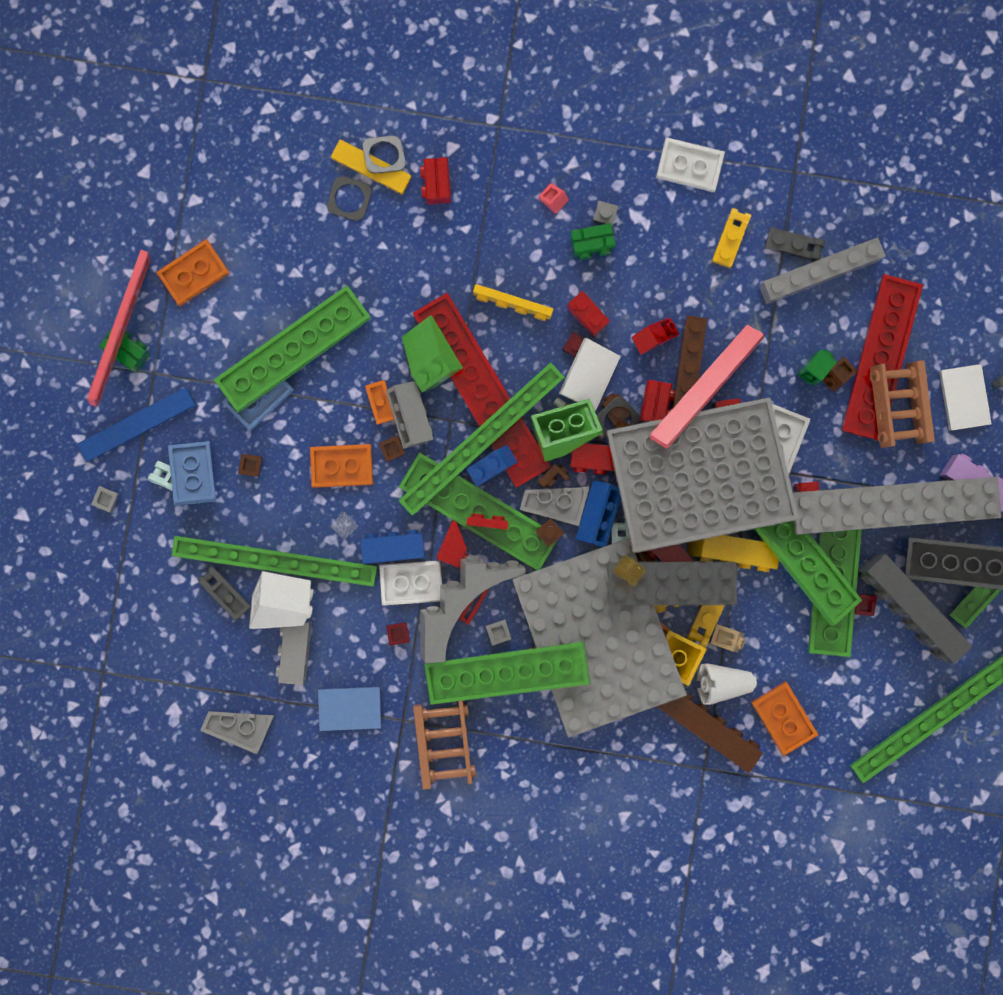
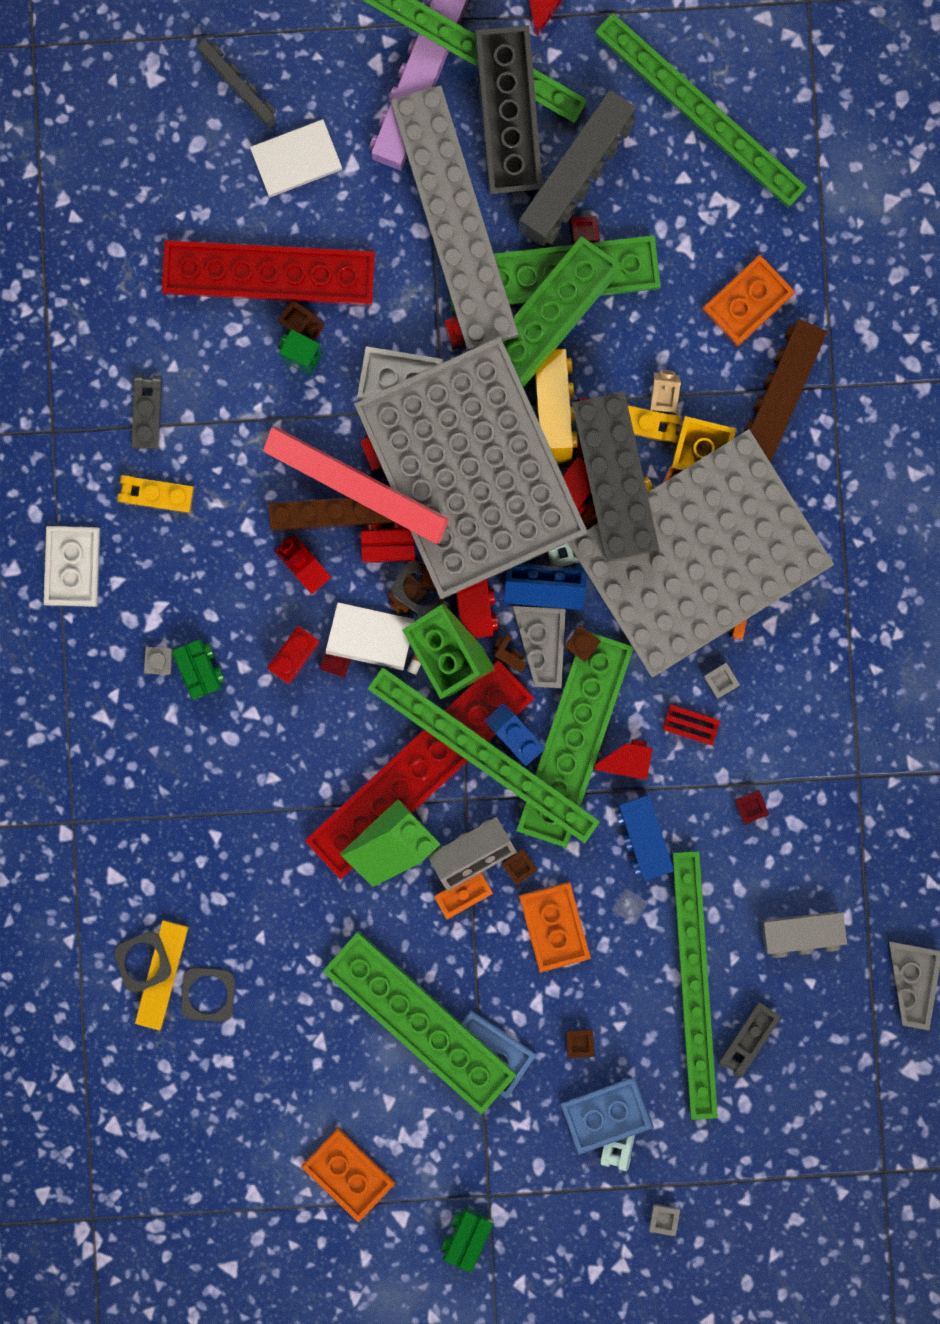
camera: 110 degrees left, 0 degrees up
(119, 328) = (444, 1250): coral tile -> none
(136, 424) = (559, 1202): blue tile -> none
(280, 601) = (745, 964): white slope -> none
(349, 708) = (858, 847): medium blue tile -> none
(410, 582) = (683, 805): white tile -> none
(426, 756) = (871, 745): nougat fence -> none
(436, 180) = (162, 886): red brick -> none
(454, 597) = (661, 724): light grey arch -> none
(479, 520) = (584, 712): red plate -> none
(505, 300) = (299, 766): yellow plate -> none
(508, 673) = (771, 658): bright green plate -> none
(553, 198) = (152, 731): coral slope -> none
(629, 570) = (611, 533): clear yellow slope -> none
(723, 683) = (722, 386): white cone -> none
(822, 270) = (174, 371): light grey brick -> none
(919, 400) = (316, 213): nougat fence -> none

